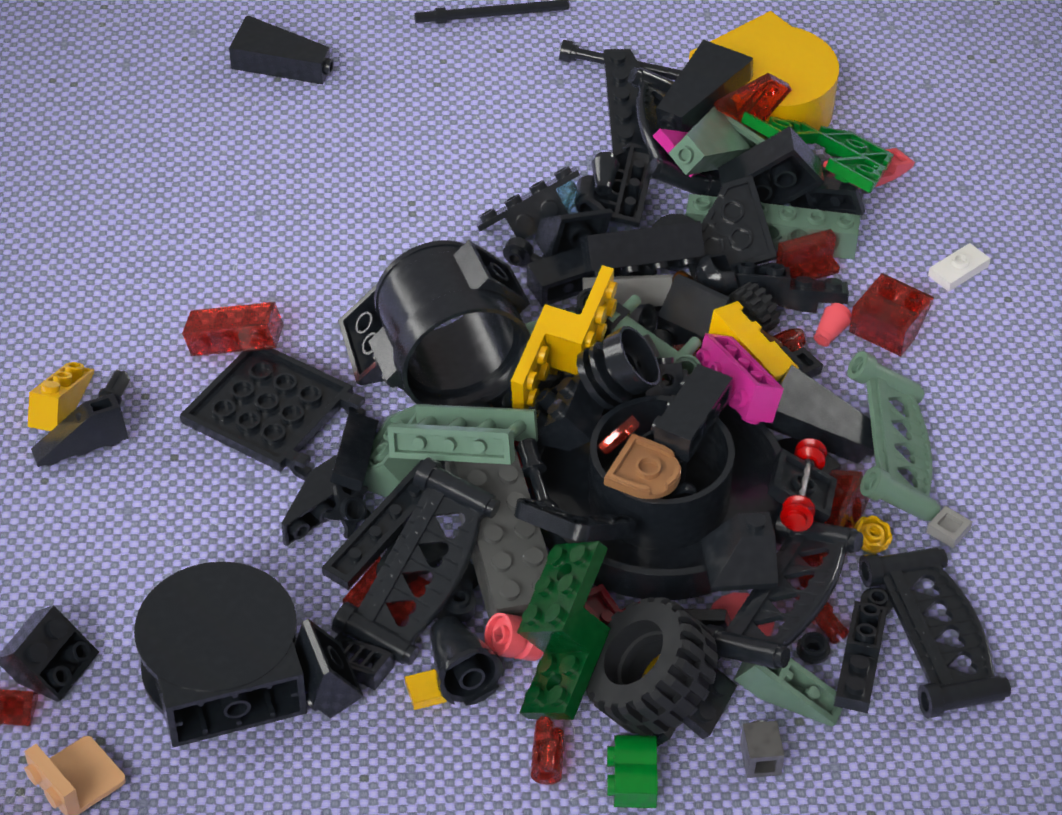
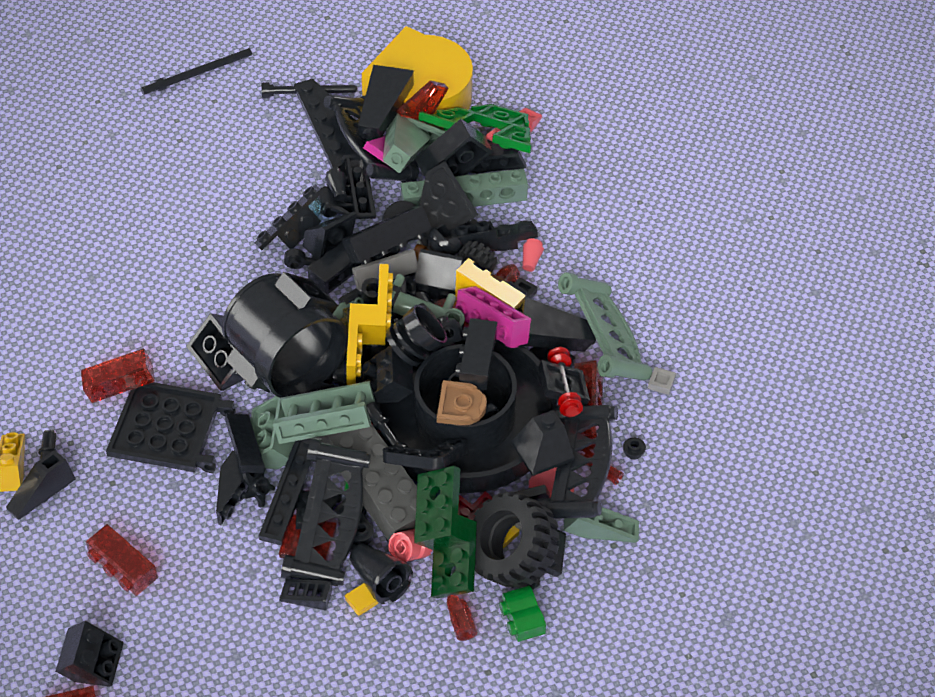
camera: 20 degrees left, 5 degrees up
(136, 547) = (121, 560): none -> clear red brick
(219, 651) = (214, 616): black brick -> none
(278, 53) = (54, 146): black slope -> none
(325, 671) = (291, 609): black slope -> none
(619, 435) = (433, 382): clear red tile -> none
(762, 749) = (599, 572): flat silver brick -> none
(809, 255) = (499, 208): clear red bracket -> none
(814, 641) = (612, 493): black plate -> none
(861, 657) = (638, 490): black slope -> none
(875, 533) = (616, 398): yellow plate -> none
(890, 314) = (569, 236): clear red slope -> none
(946, 687) = (701, 492): black piece -> none
(959, 267) = (600, 187): white plate -> none

